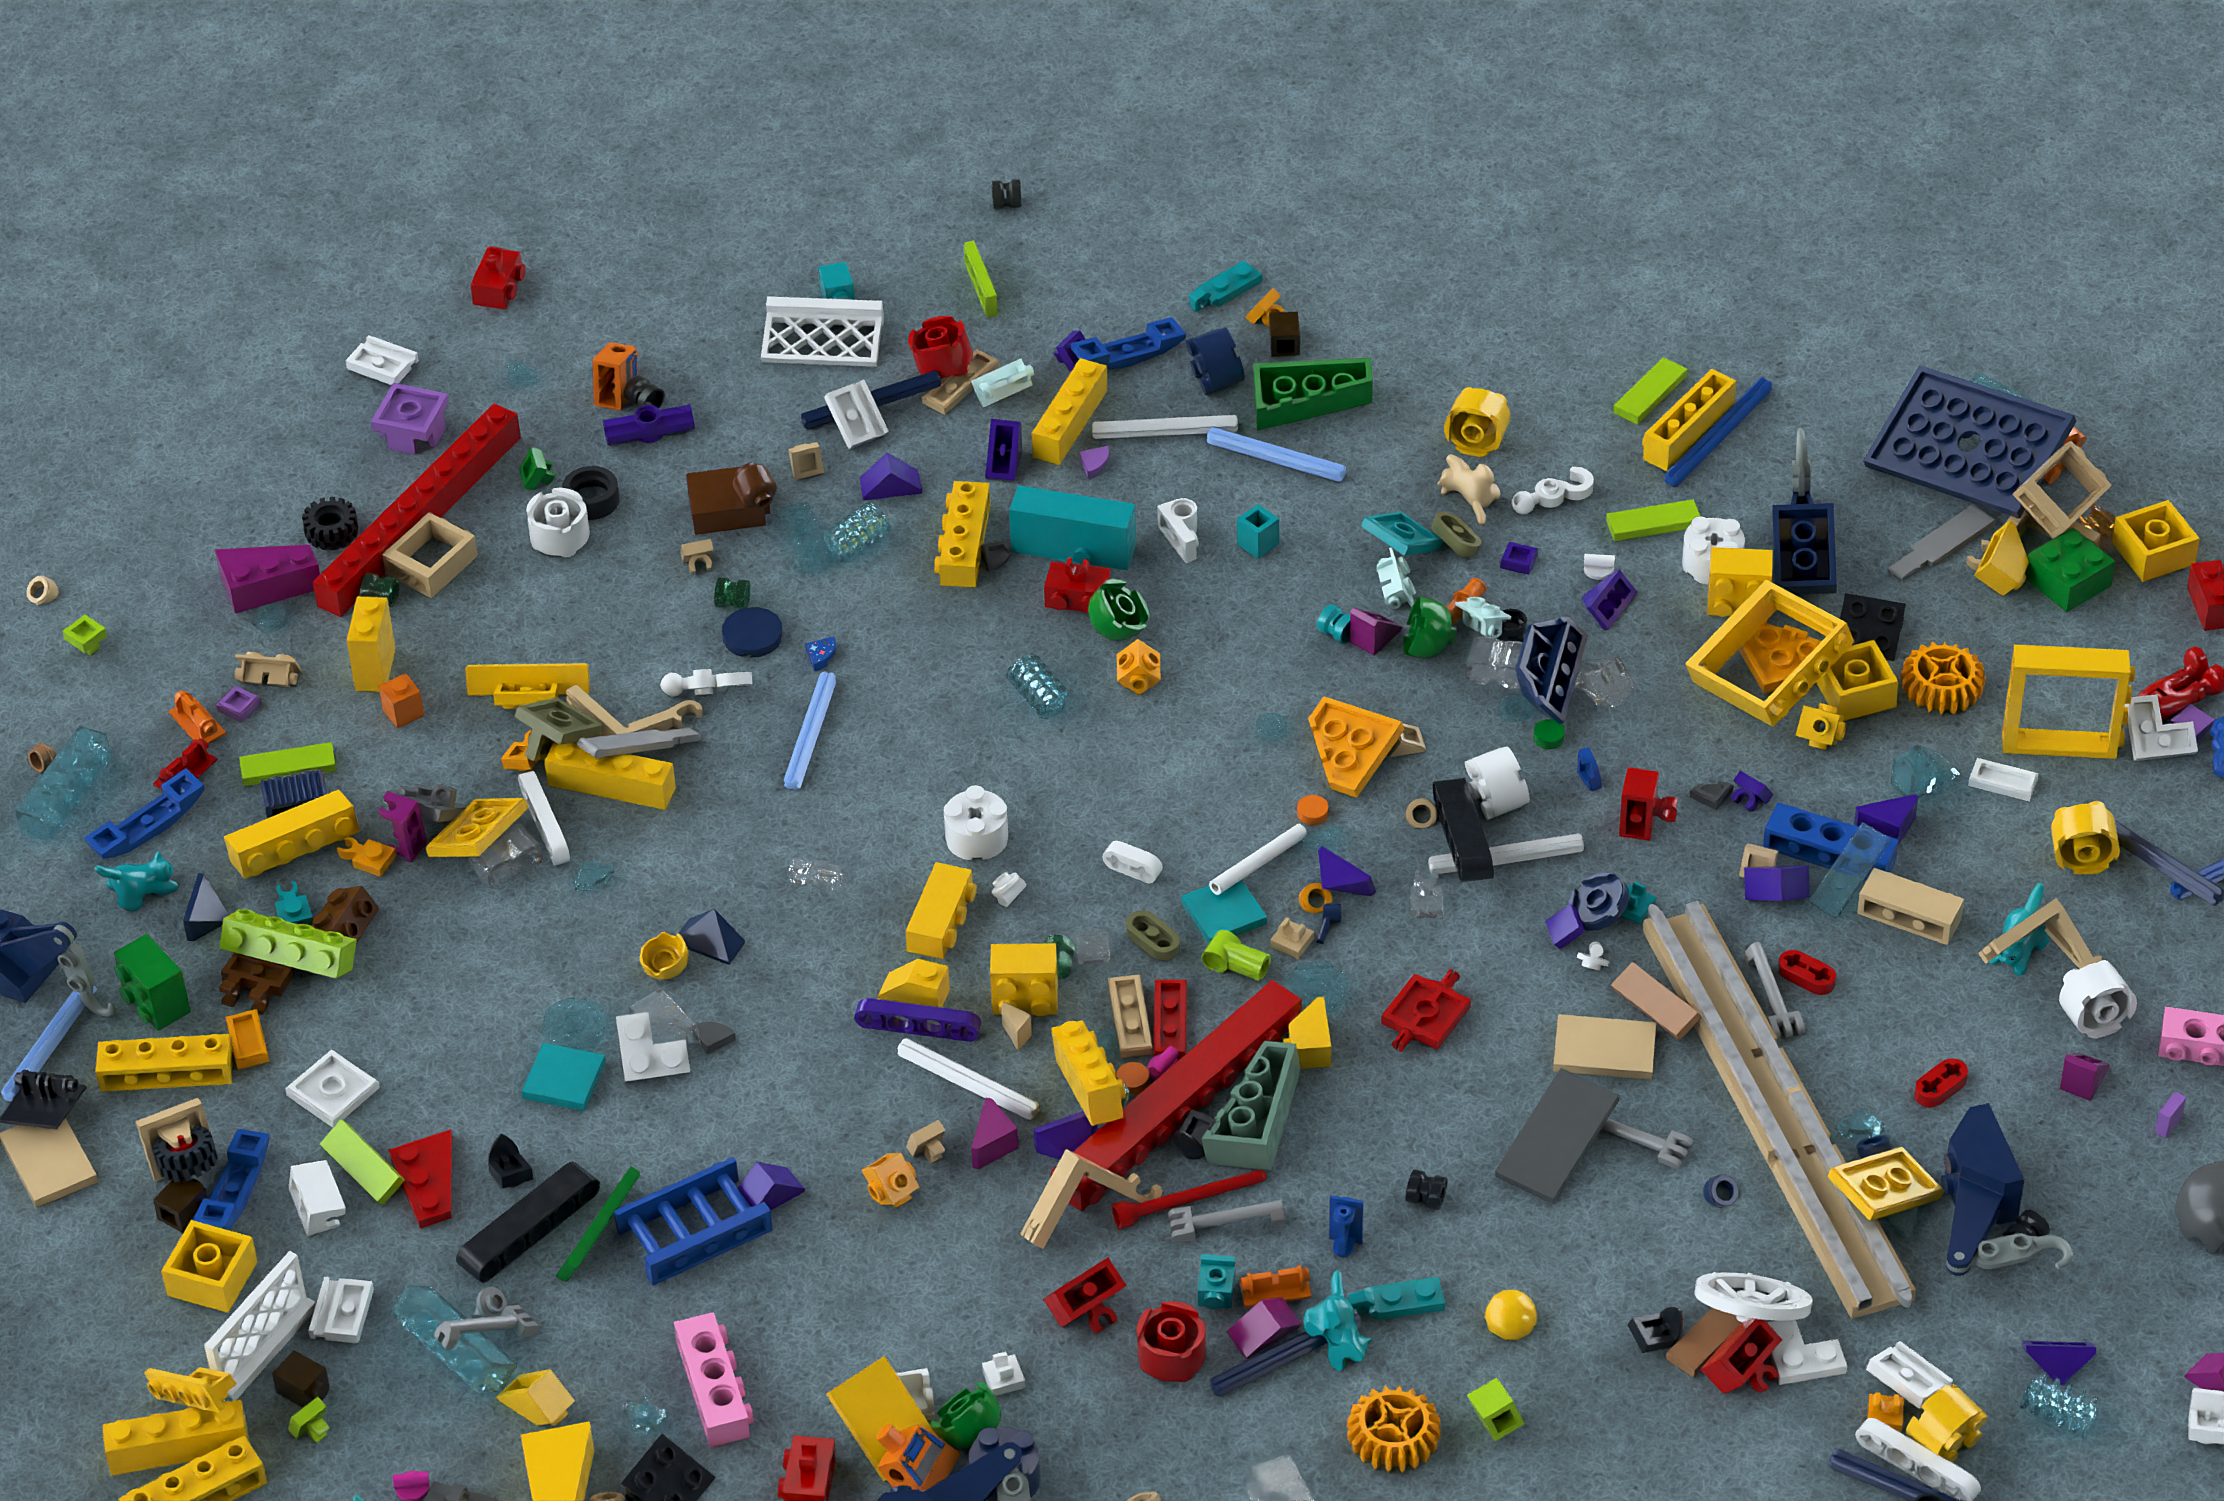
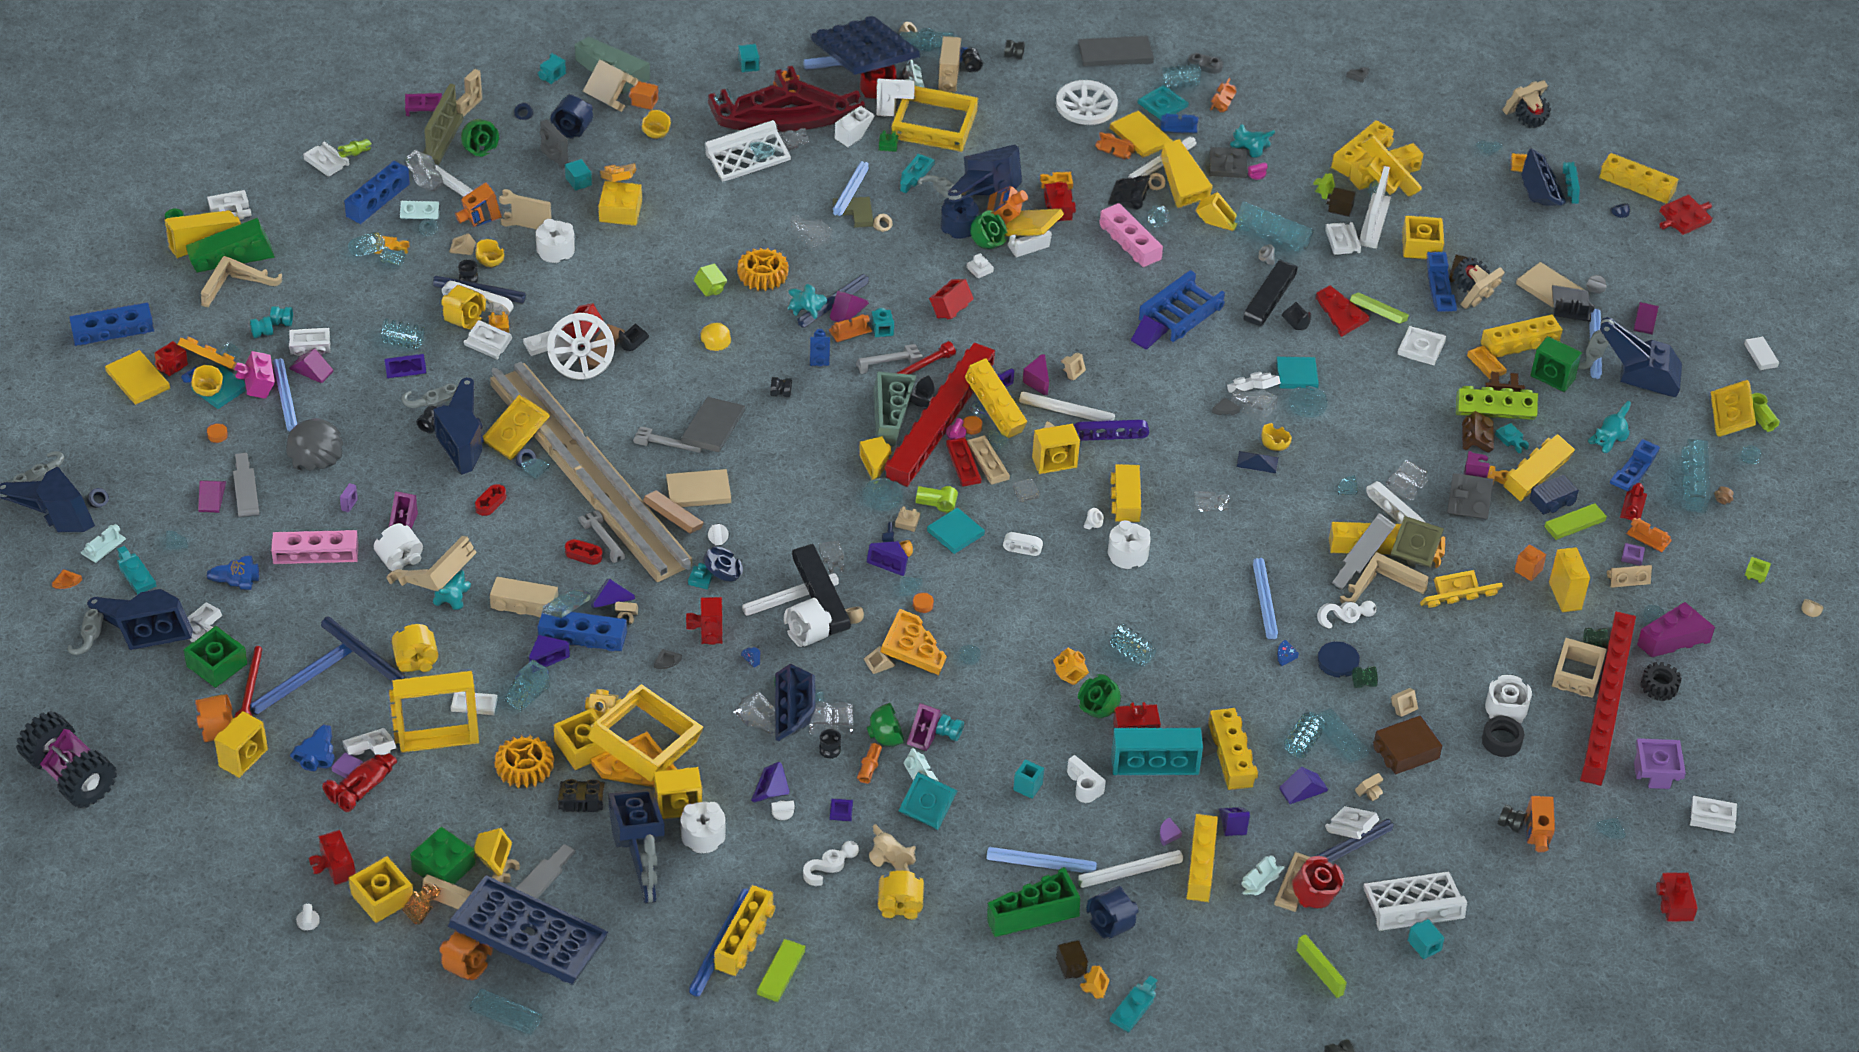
camera: 160 degrees right, 0 degrees up
(203, 911) = (1561, 423): dark blue slope -> none
(316, 1196) = (1393, 284): white hinge -> none
(477, 827) = (1430, 486): yellow tile -> none
(511, 1318) = (1249, 246): light grey hinge -> none
(535, 469) = (1551, 746): green tile -> none
(598, 1224) = (1232, 296): green tile -> none
(648, 424) = (1494, 794): dark purple piece -> none
(754, 485) = (1386, 728): reddish brown head -> none
(891, 1179) = (1083, 337): light orange brick -> none
(917, 983) = (1120, 447): yellow slope -> none
(1062, 1187) = (974, 336): tan hinge -> none
(1064, 353) = (1222, 914): dark purple tile -> none
(1065, 951) = (1044, 478): clear green wheel -> none
(1157, 940) = (993, 504): olive plate -> none
(1158, 339) = (1187, 926): blue slope -> none
(1171, 1342) = (895, 284): red brick -> none
(1257, 859) = (945, 557): white piece -> none
(1399, 1299) = (780, 335): teal hinge -> none
(1426, 1011) = (811, 486): red plate -> none
(1456, 534) = (891, 813): olive plate -> none
(1482, 616) = (851, 737): light aqua hinge -> none
(1565, 926) = (740, 550): dark purple tile -> none
(1652, 520) = (752, 857): lime tile -> none
(1709, 1190) = (612, 422): dark blue piece -> none
(1750, 788) = (640, 658): dark purple tile -> none
(2044, 508) = (453, 881): tan window -> none

